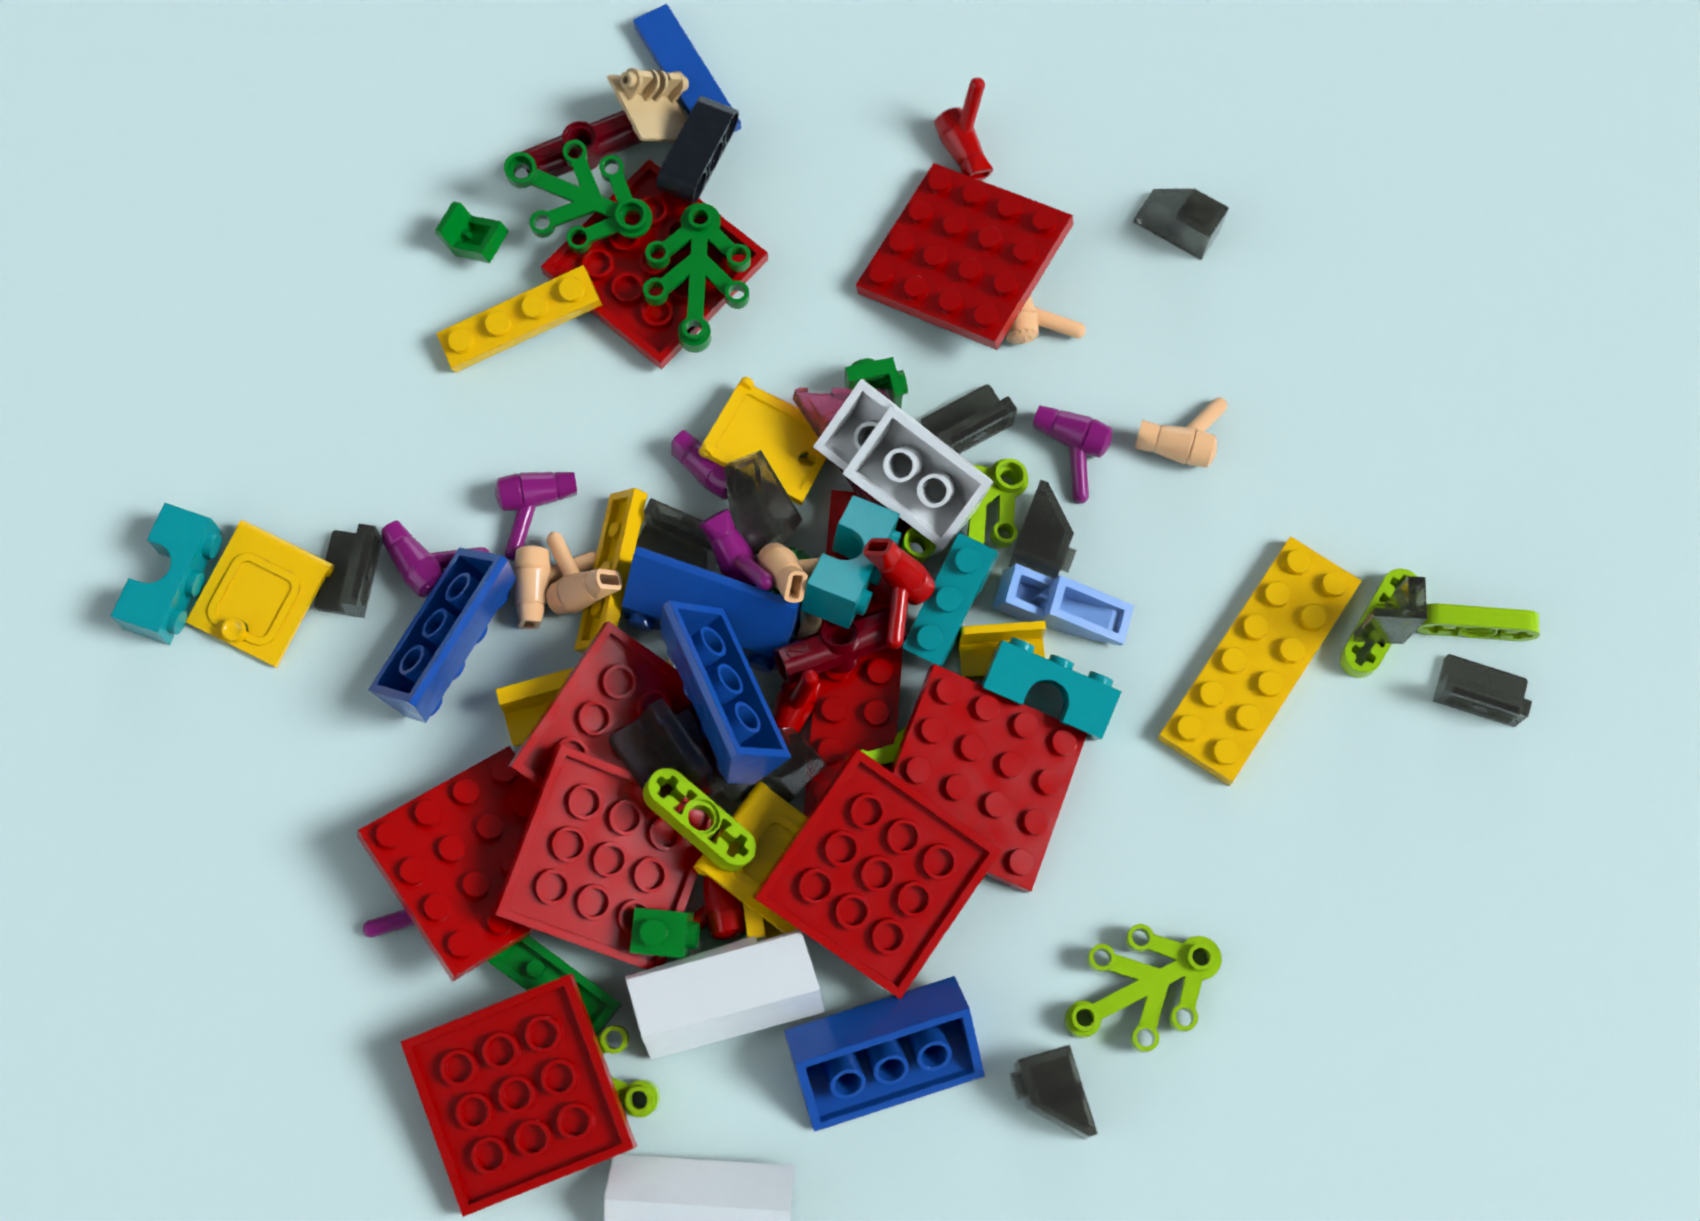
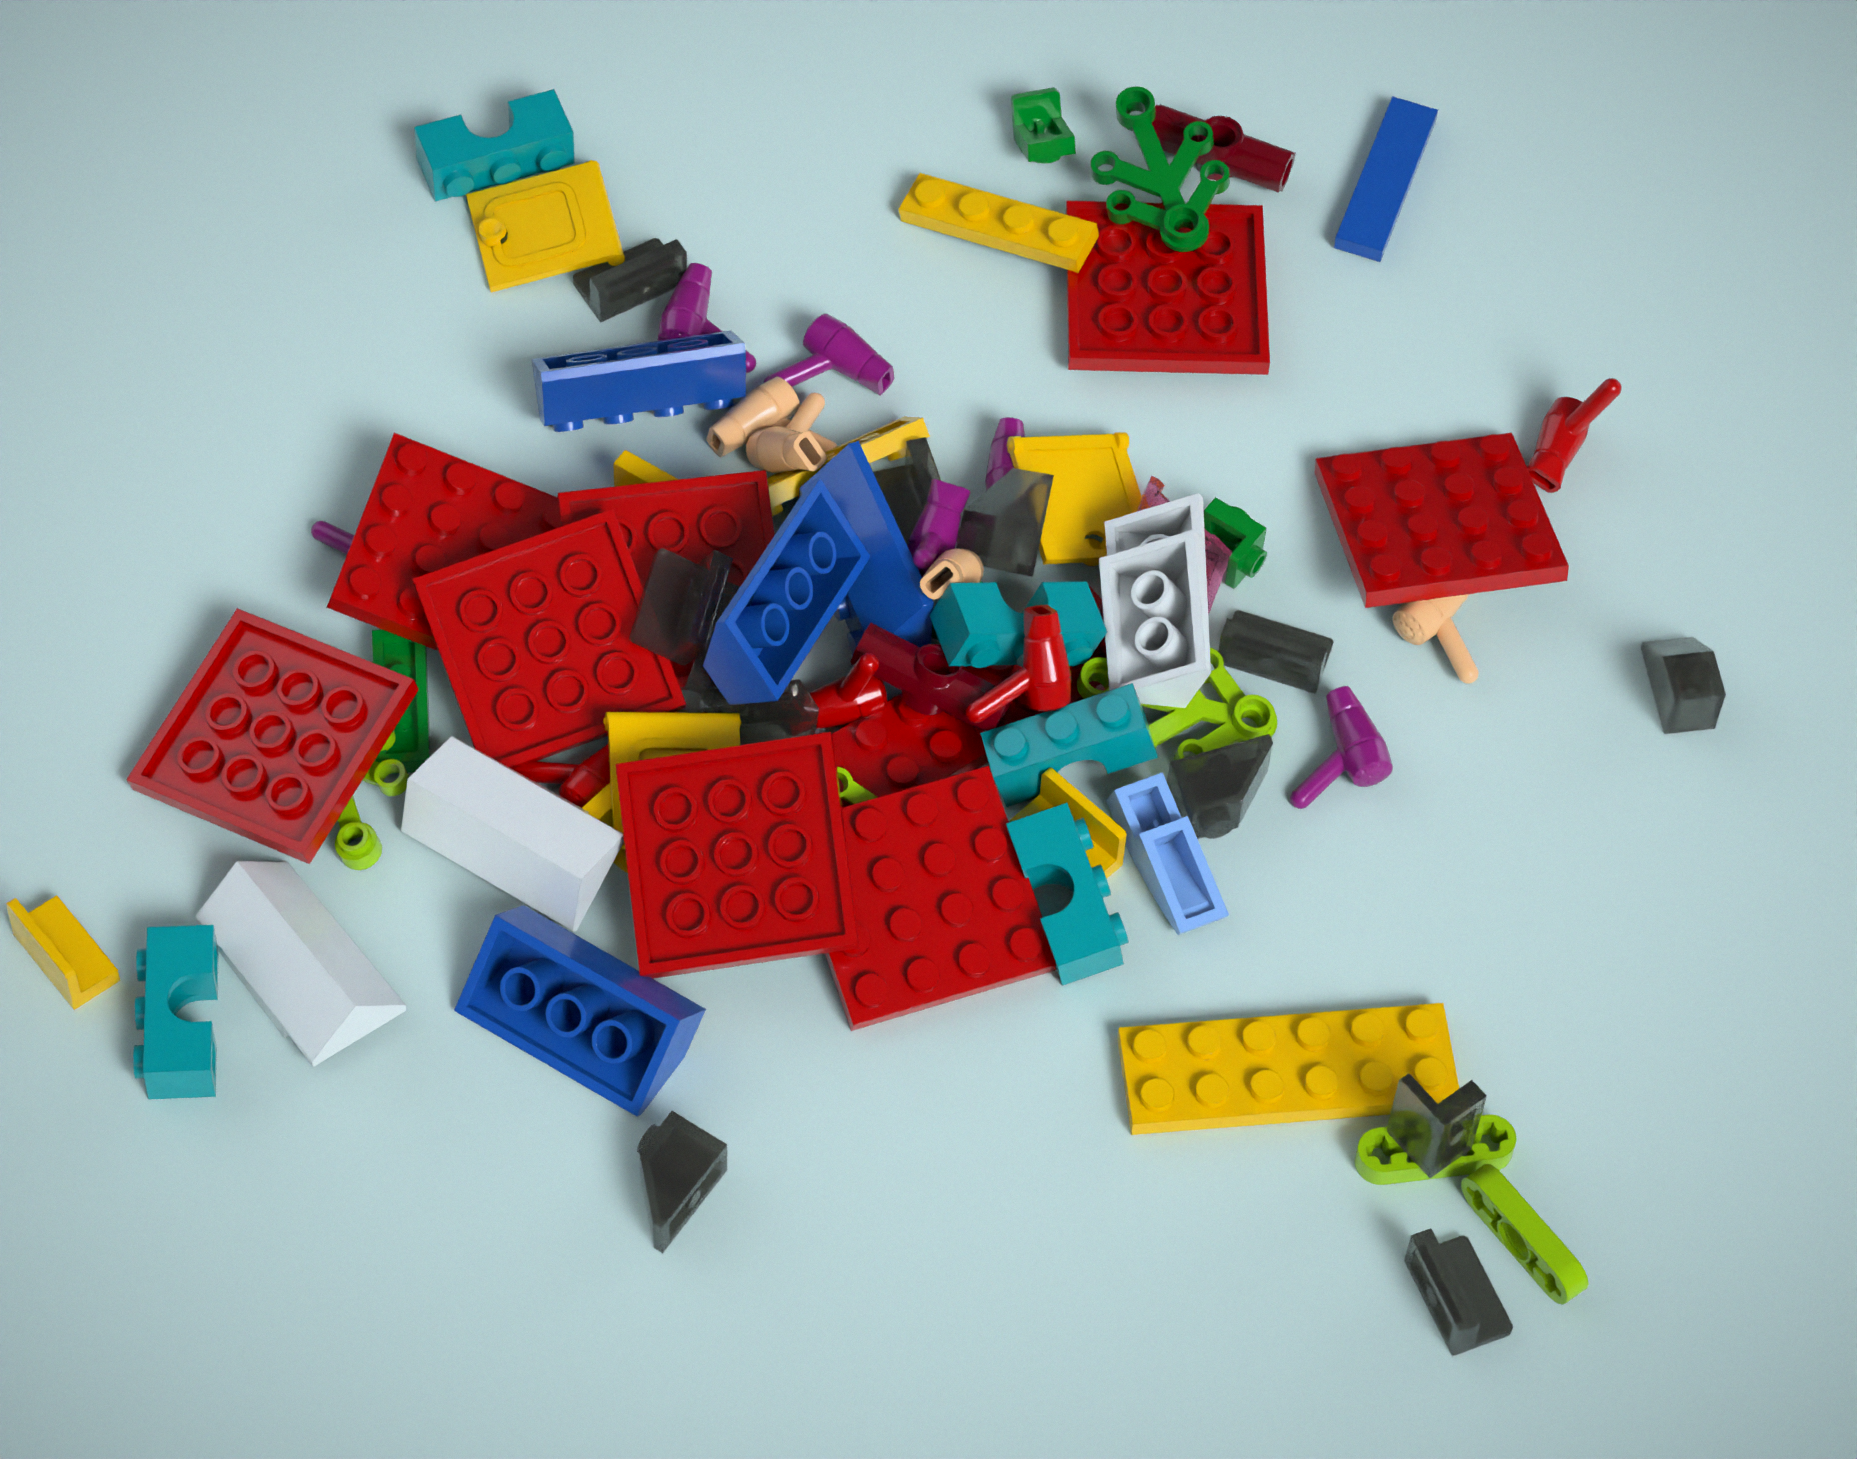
camera: 50 degrees right, 15 degrees down
(652, 102) = (1317, 167): tan hinge -> none
(664, 932) = (525, 738): green bracket -> none
(697, 149) = (1308, 230): black beam -> none
(697, 268) = (1184, 314): green plant -> none
(718, 817) = (636, 693): lime beam -> none
(1150, 983) = (855, 1193): lime plant -> none
(1184, 444) = (1444, 845): light nougat piece -> none

